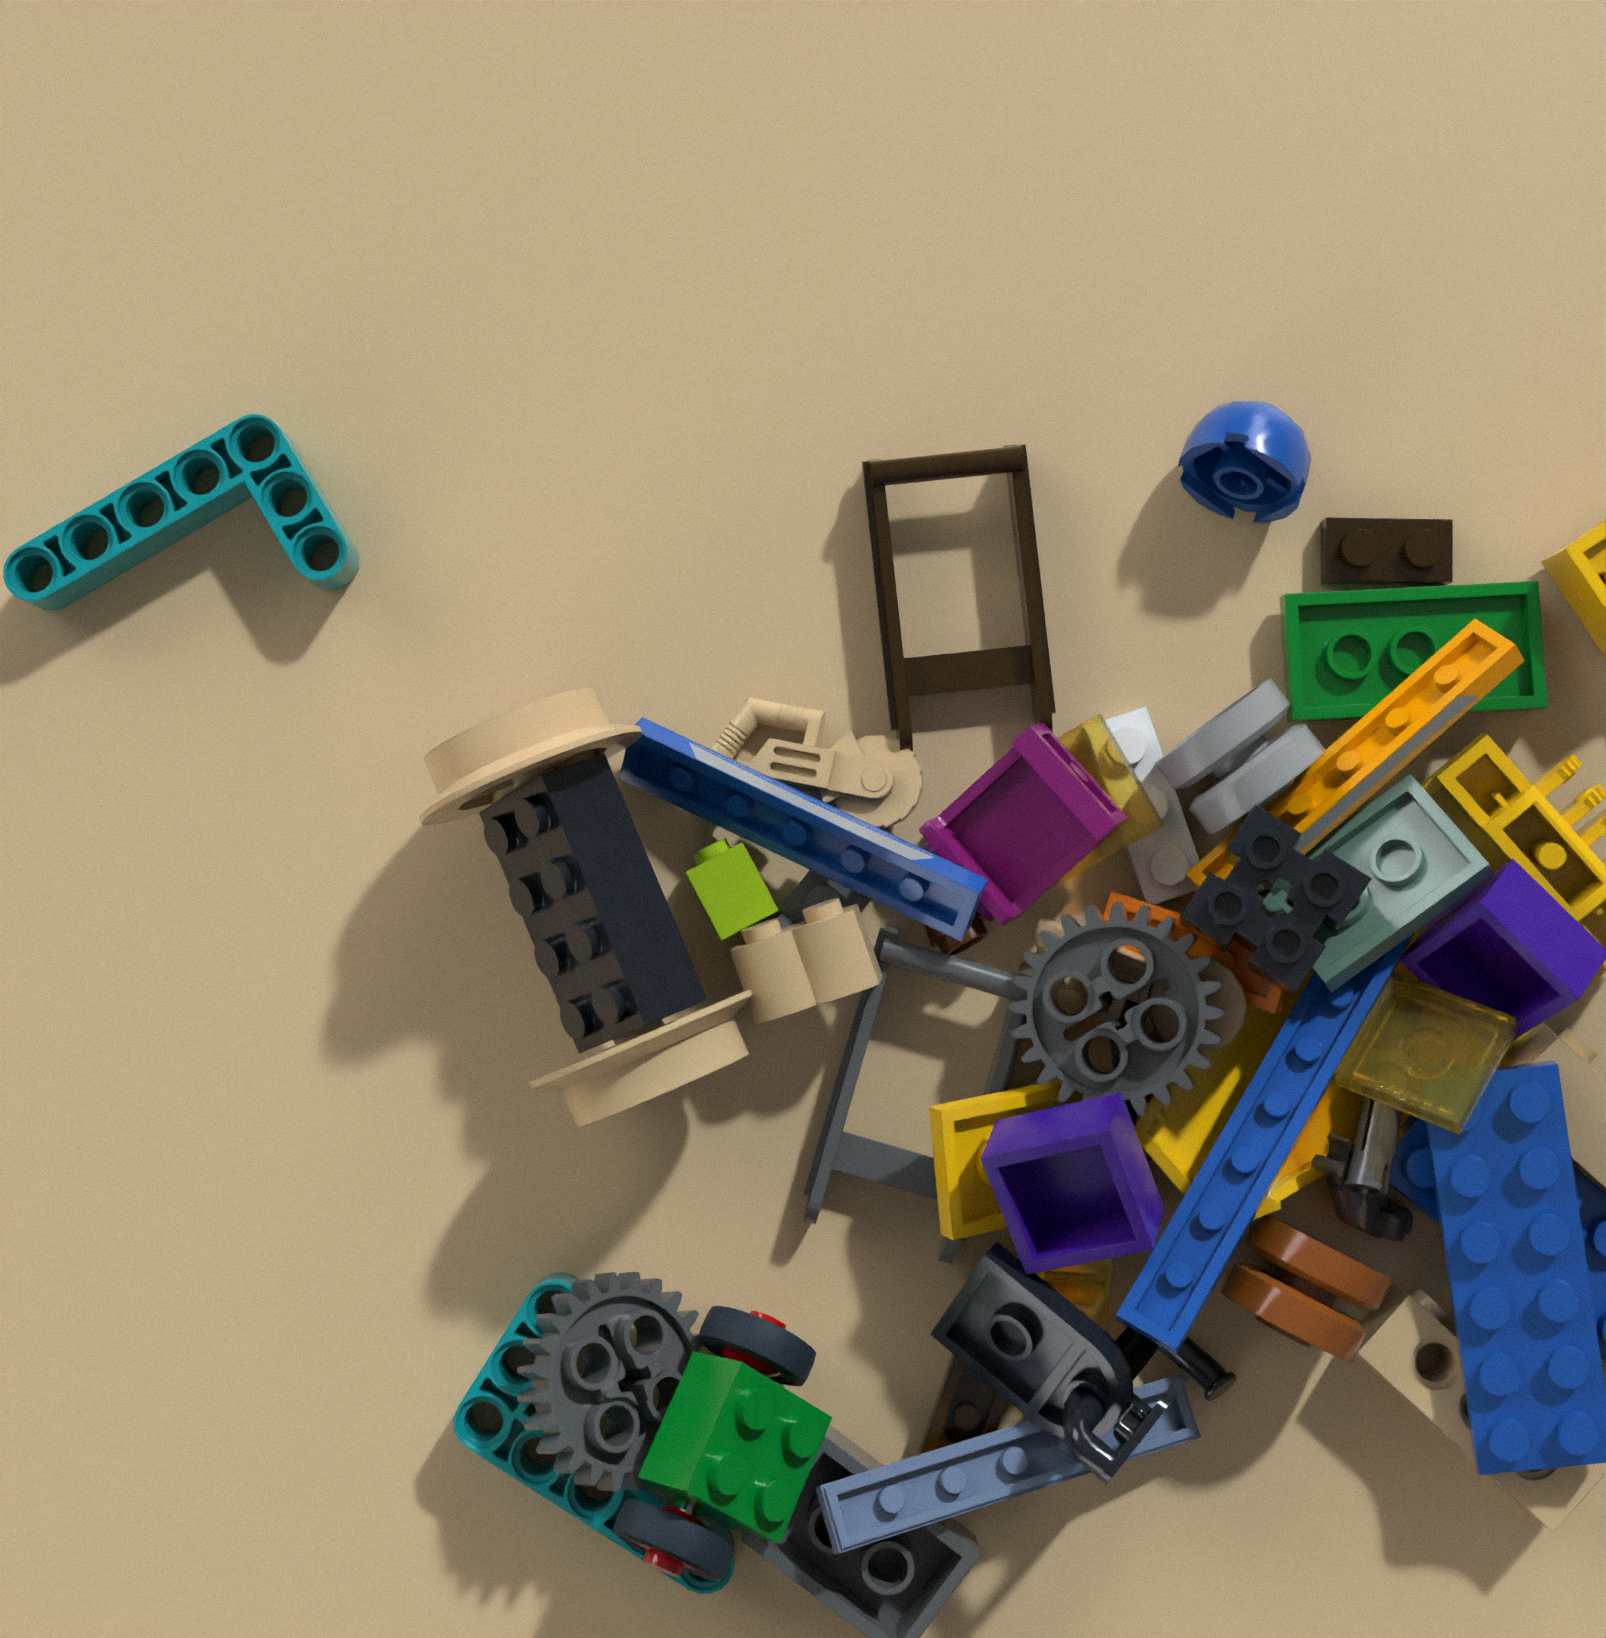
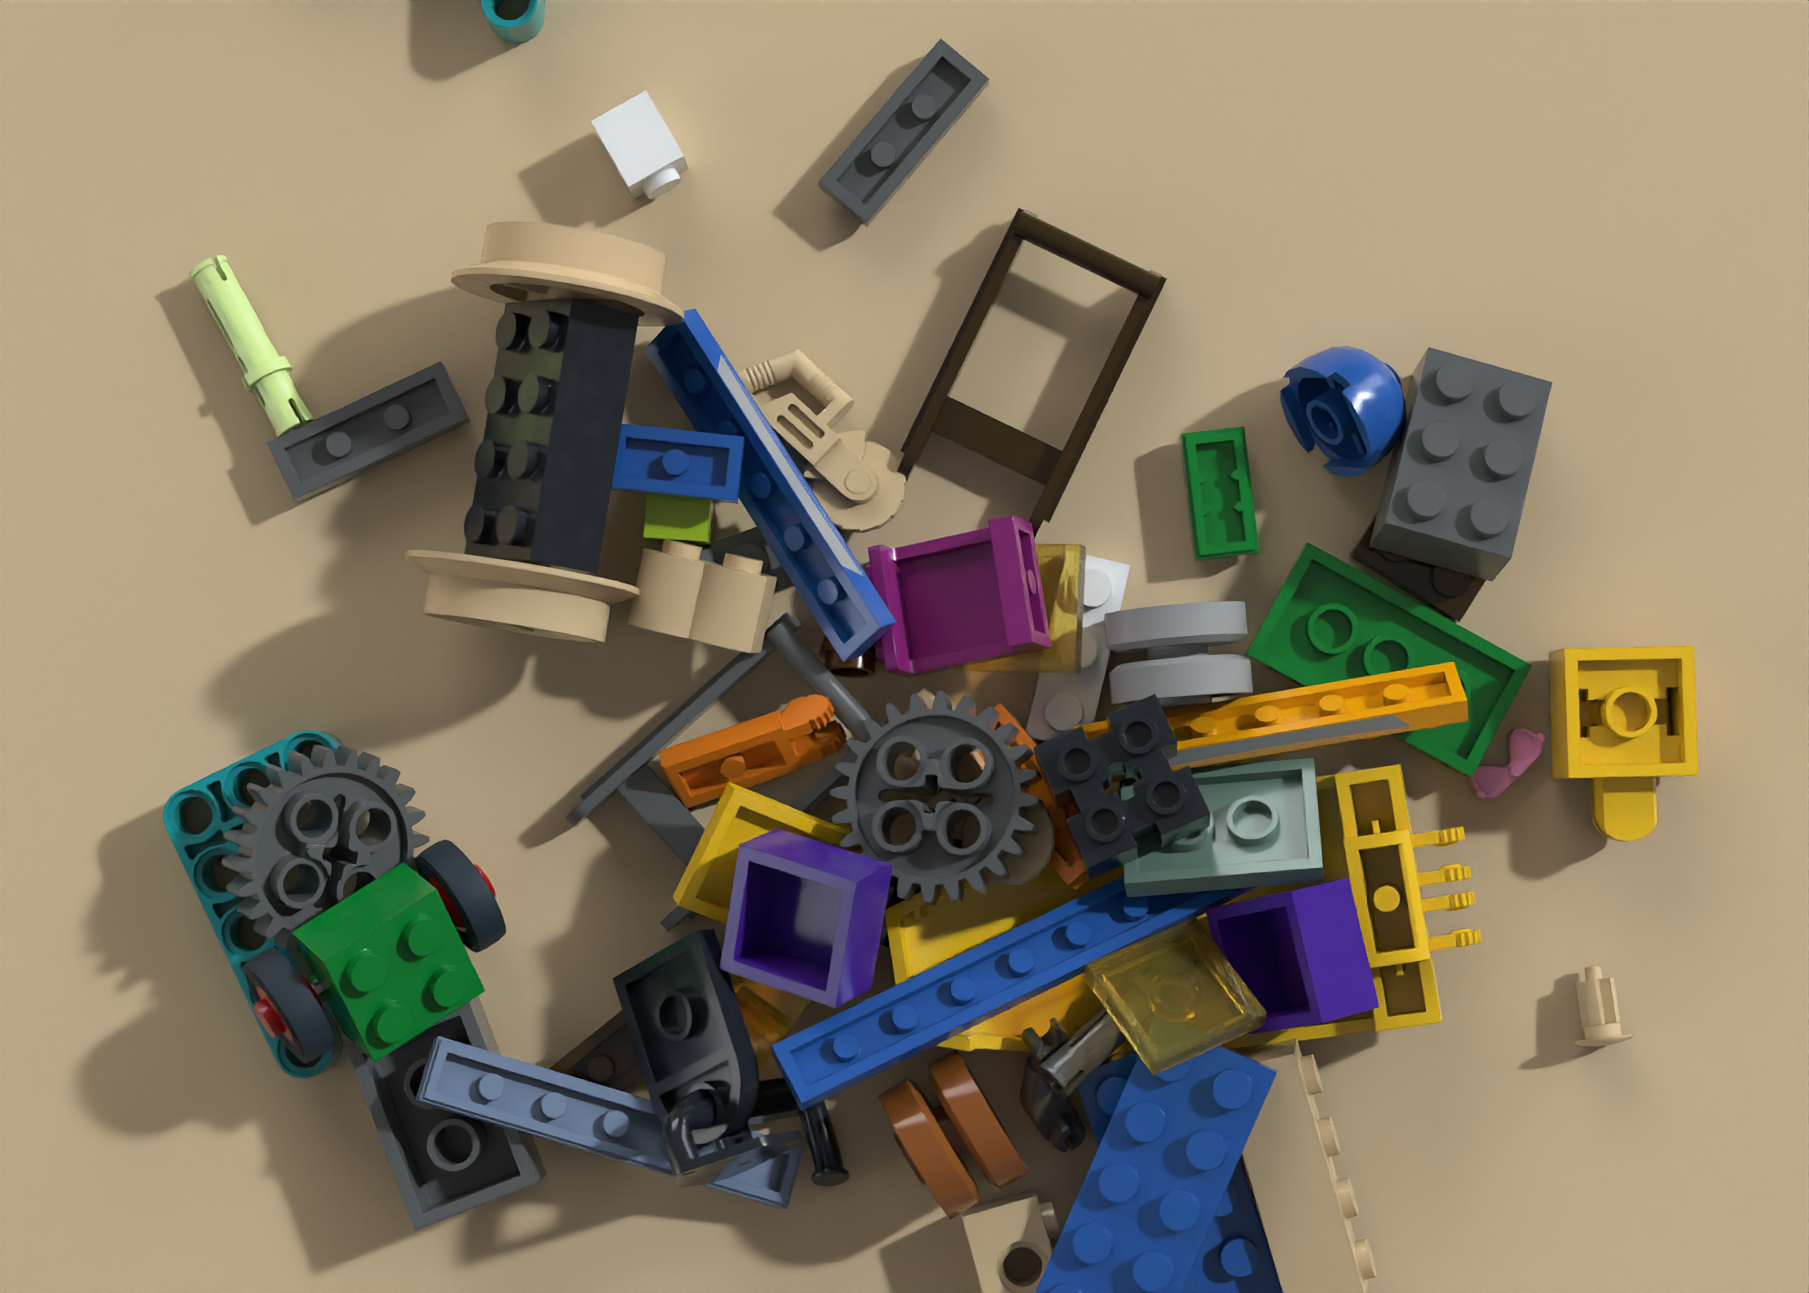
camera: 30 degrees right, 0 degrees up
(303, 997) = (263, 368): none -> yellowish green pin
(427, 995) = (368, 432): none -> dark grey plate
(509, 607) = (641, 147): none -> white brick
(715, 858) = (678, 463): none -> blue plate
(724, 458) = (903, 132): none -> dark grey plate
(928, 1063) = (753, 750): none -> orange hinge
(1183, 599) = (1219, 493): none -> green plate
(1377, 447) = (1461, 465): none -> dark grey brick
(1571, 658) = (1522, 750): none -> bright pink piece

